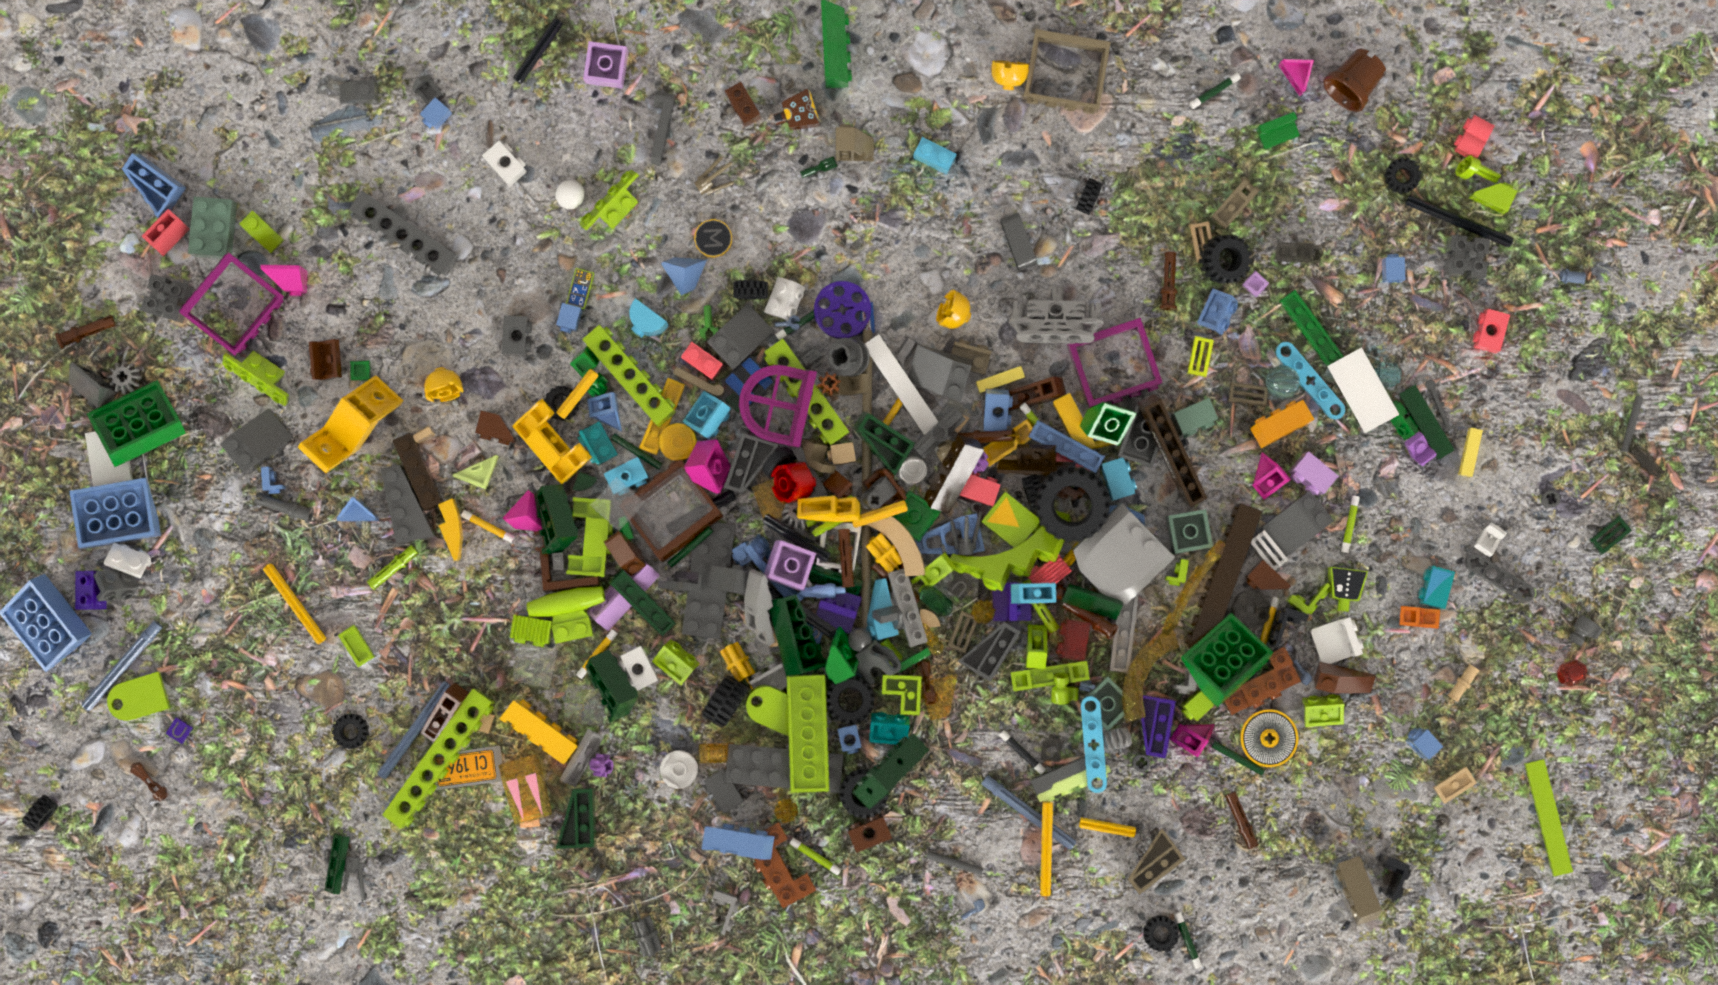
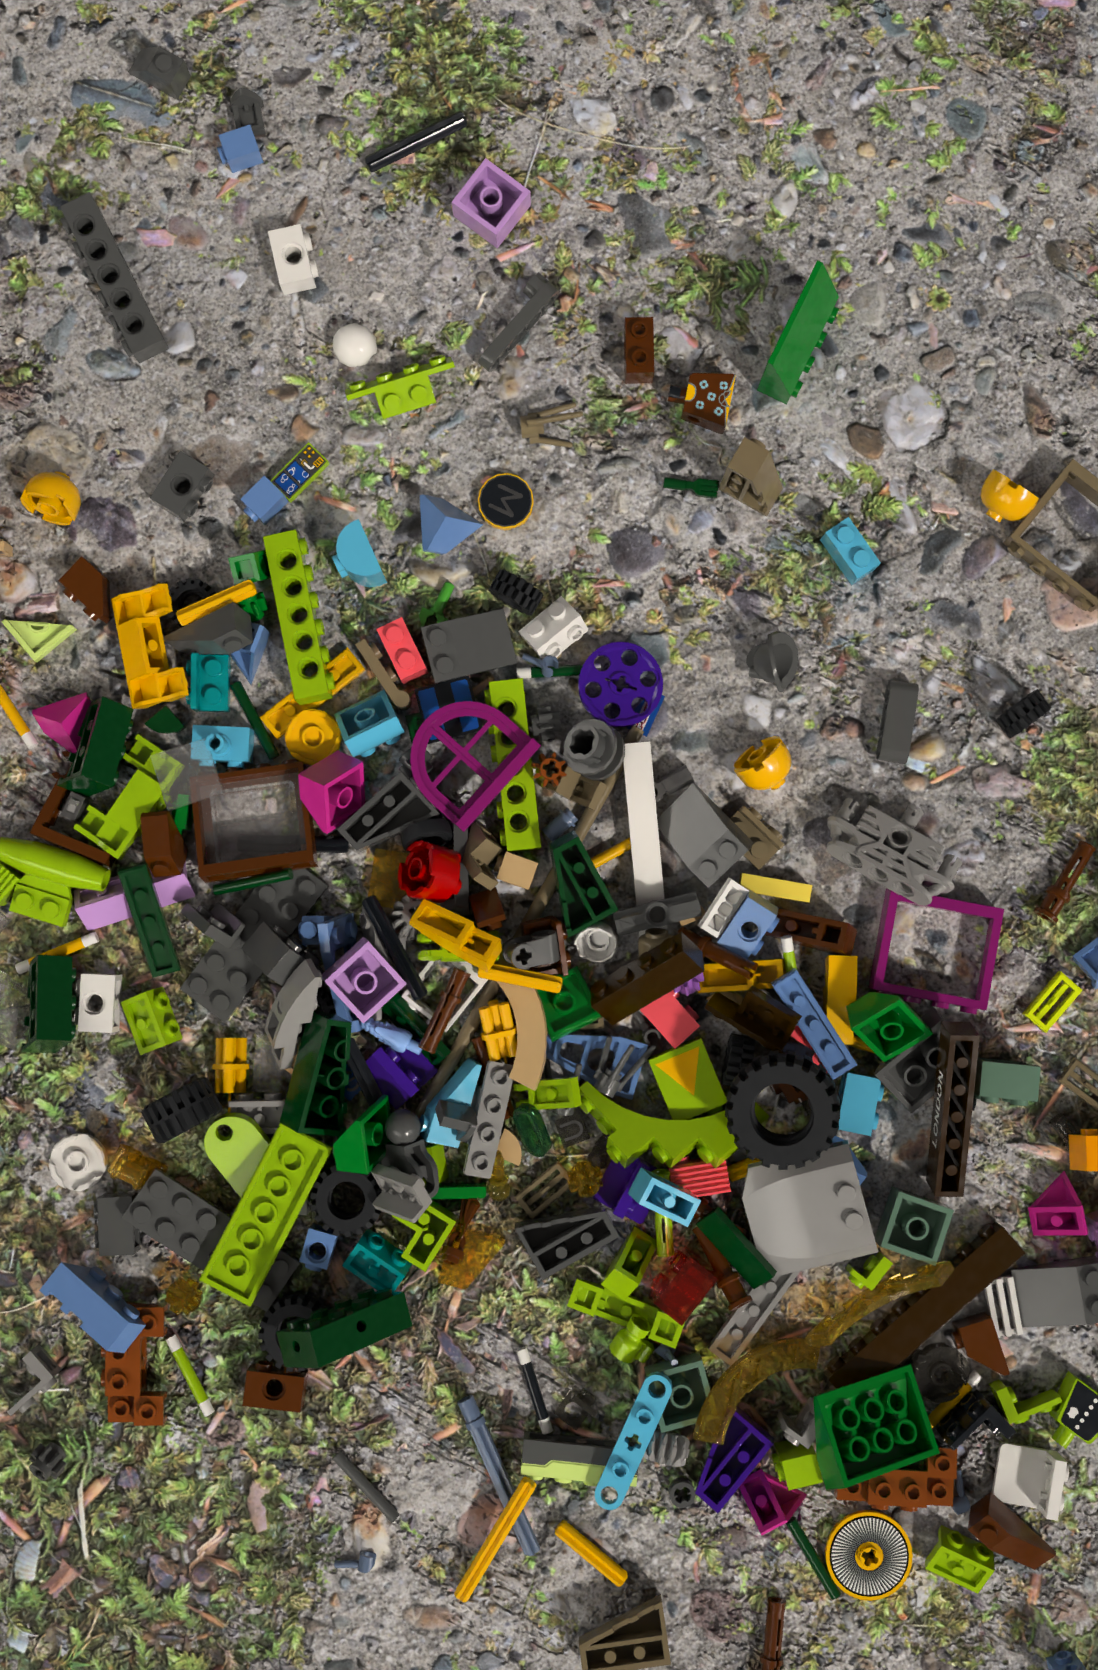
camera: 30 degrees right, 0 degrees up
(588, 411) = (215, 633): none -> dark grey slope
(760, 950) = (47, 1461): none -> dark grey gear
(852, 413) = (560, 824): none -> sand blue pin
(879, 675) = (401, 1193): none -> light grey bracket
(925, 245) = (774, 660): none -> dark grey helmet
(976, 408) = (723, 908): none -> white slope

